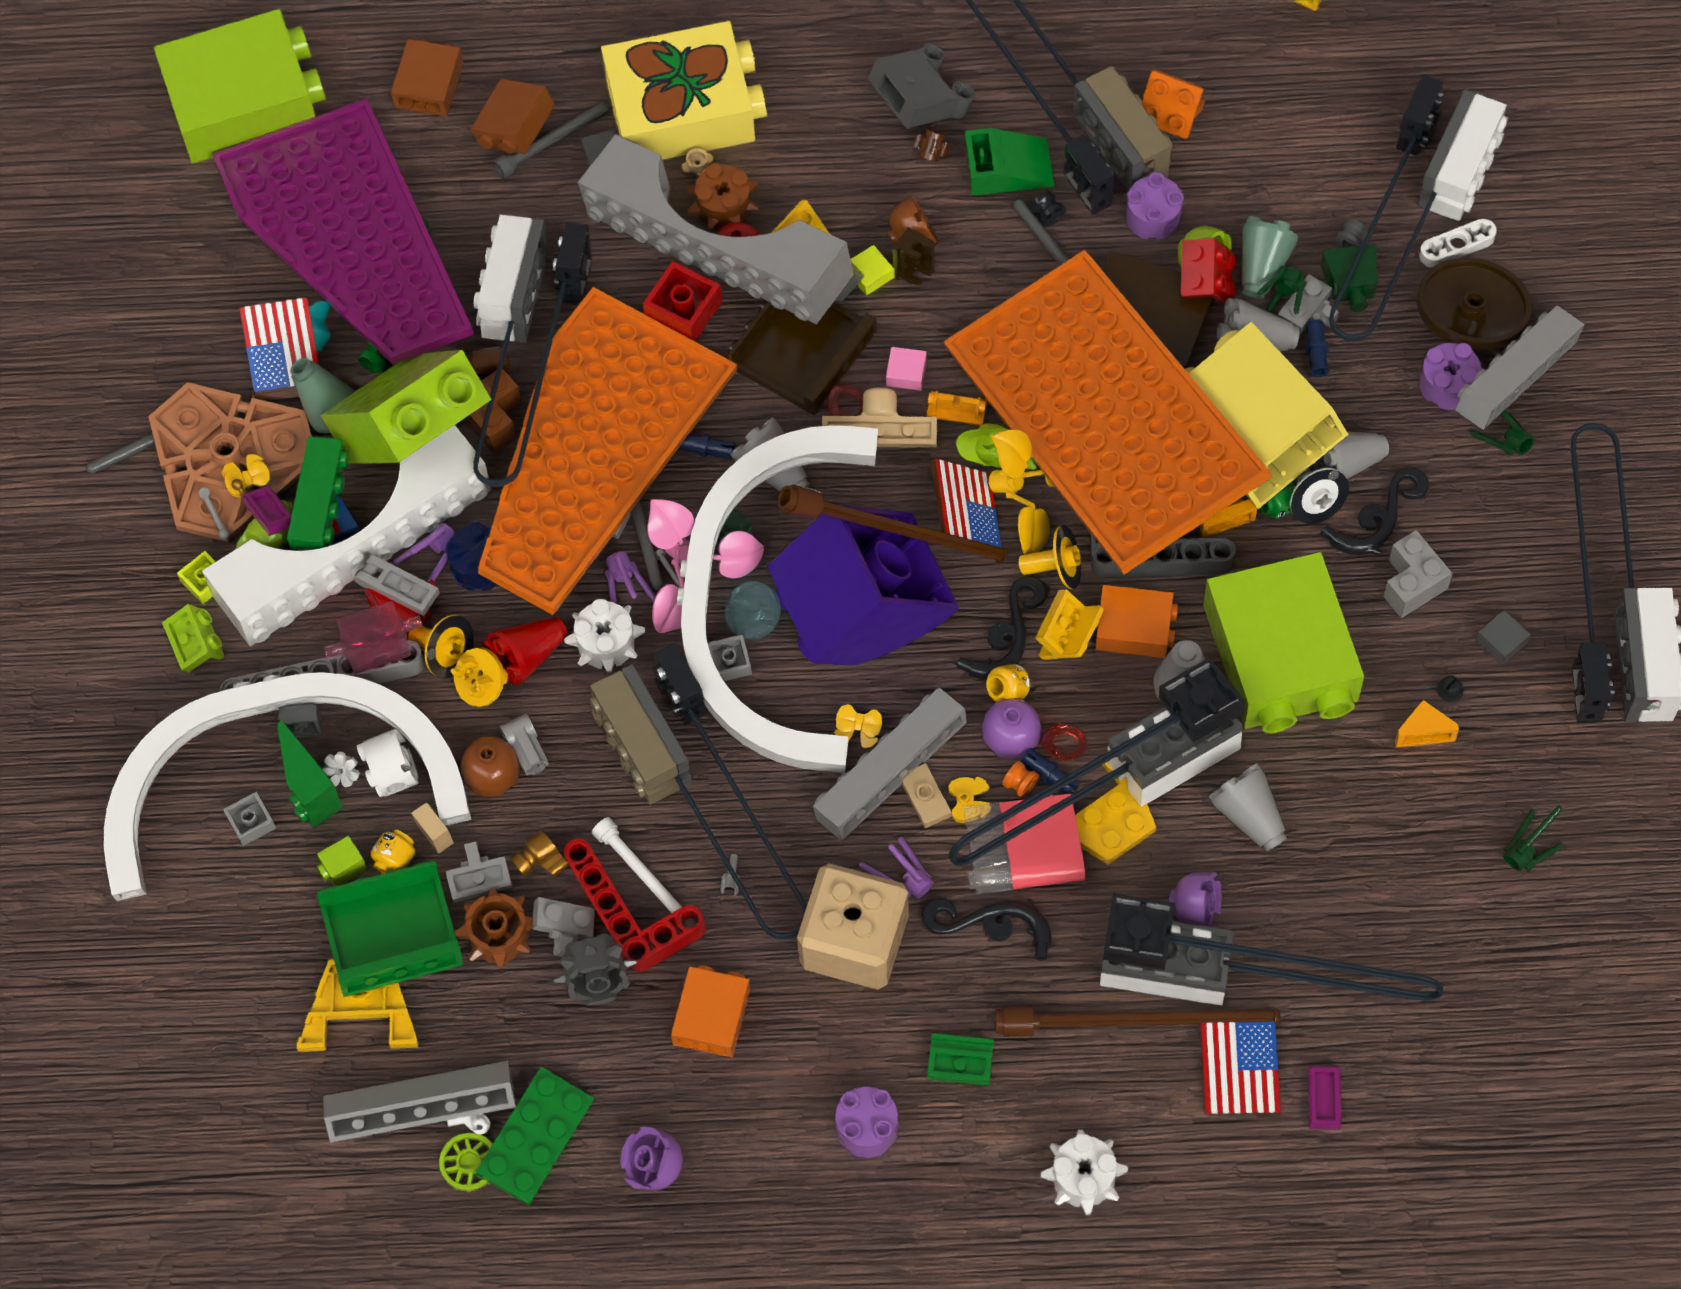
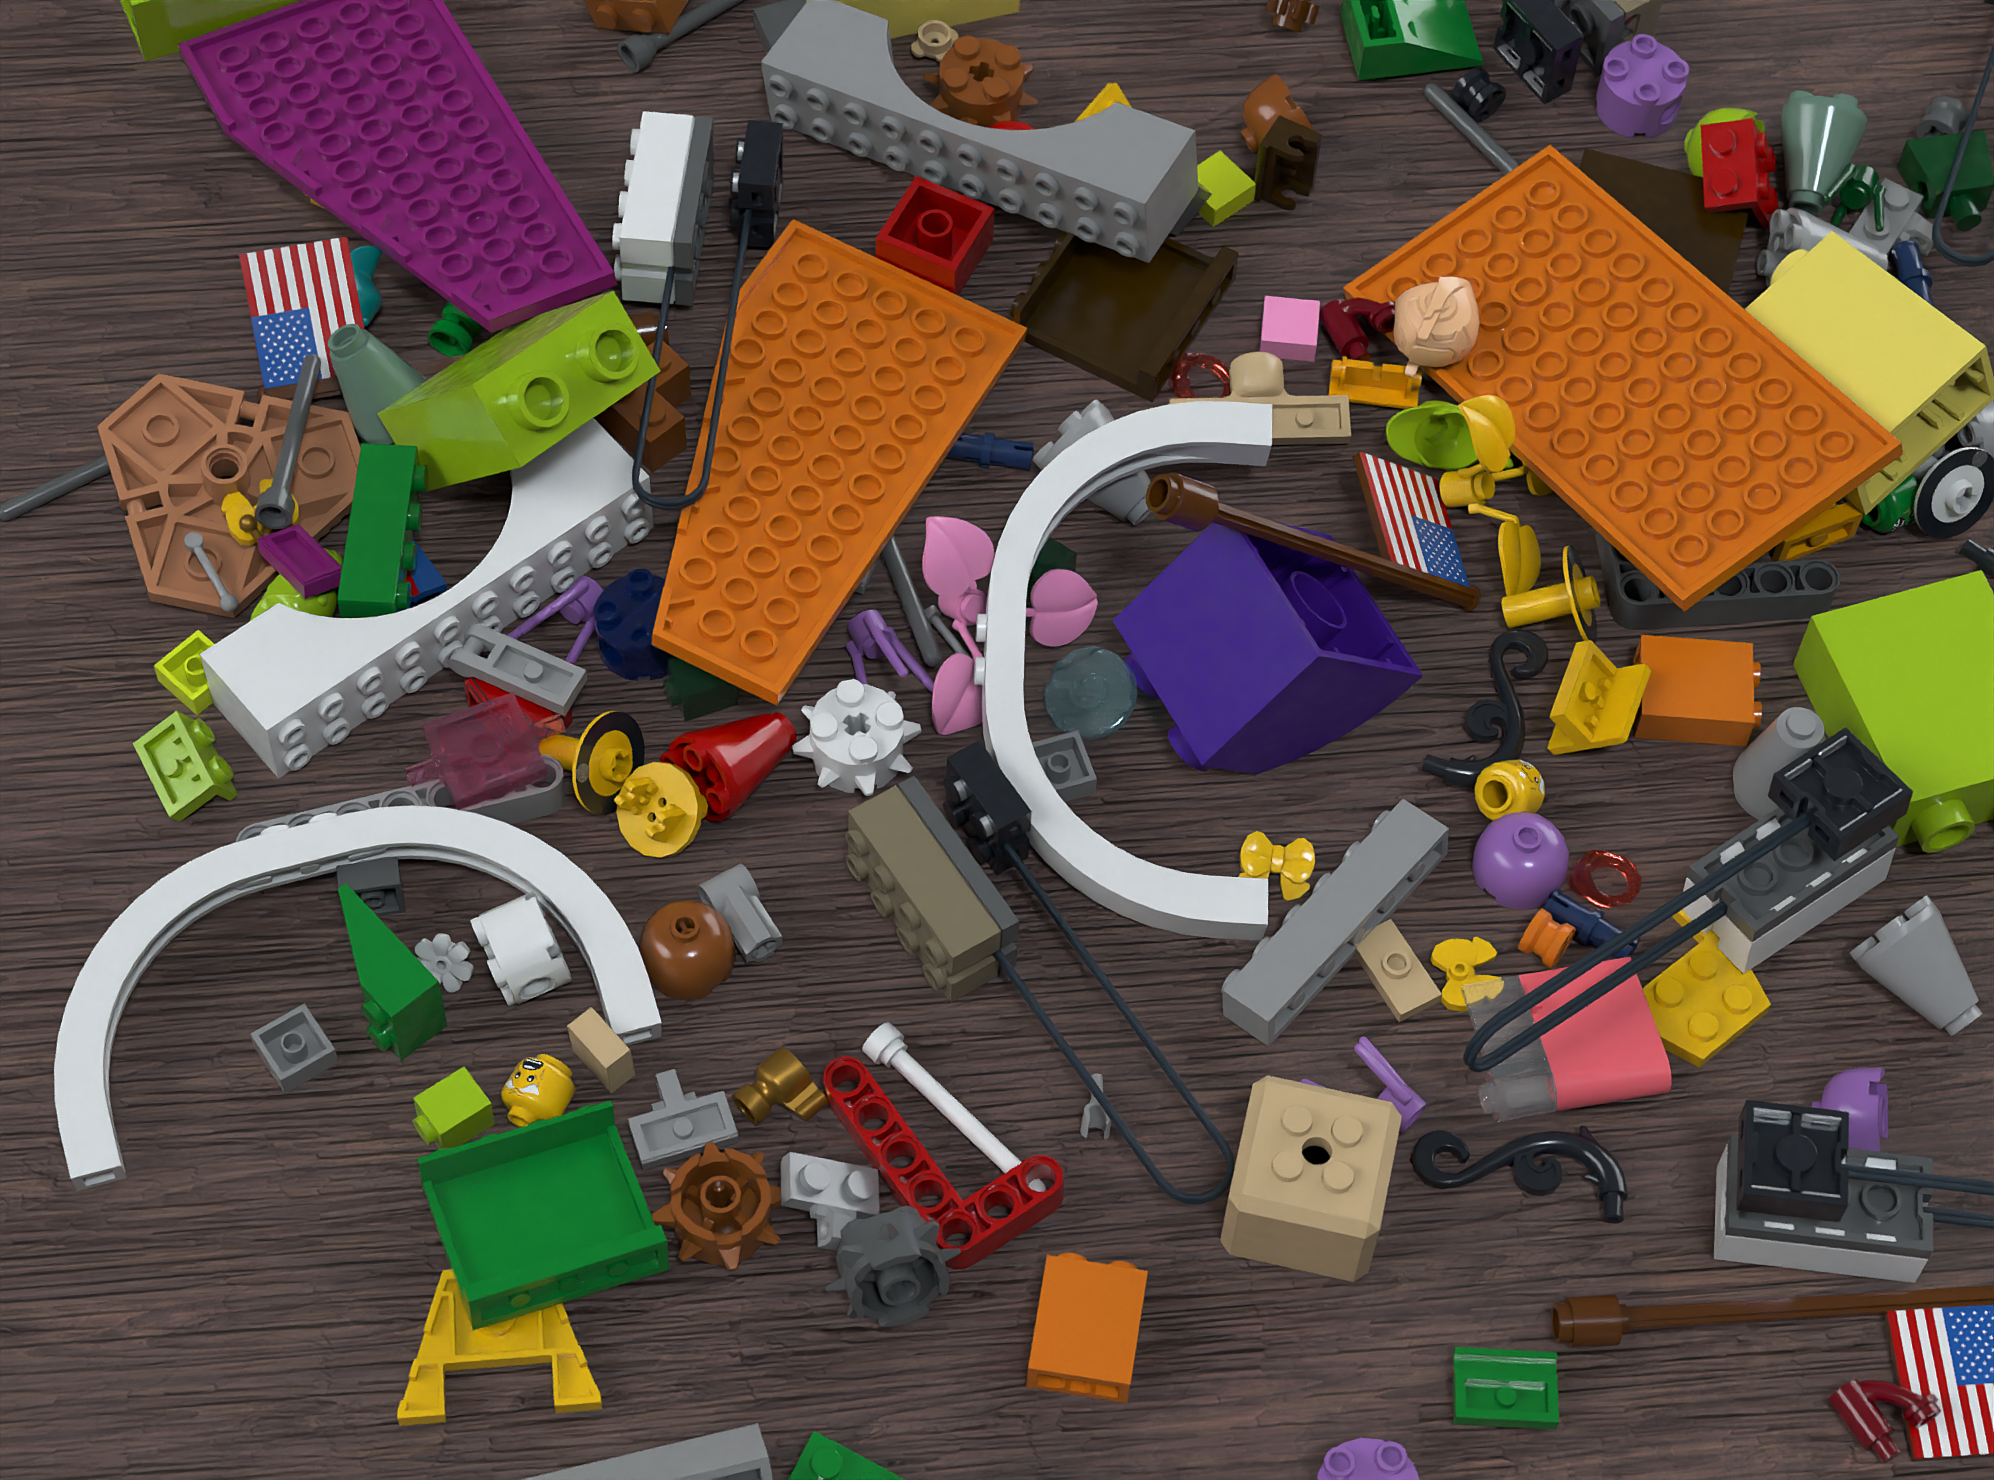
camera: 10 degrees left, 5 degrees down
(254, 473) = (276, 504): none -> dark grey piece
(507, 602) = (696, 690): none -> clear green brick
(940, 369) = (1345, 331): none -> dark red plant
(993, 373) = (1436, 323): none -> light nougat helmet
(1178, 1089) = (1870, 1427): none -> dark red plant

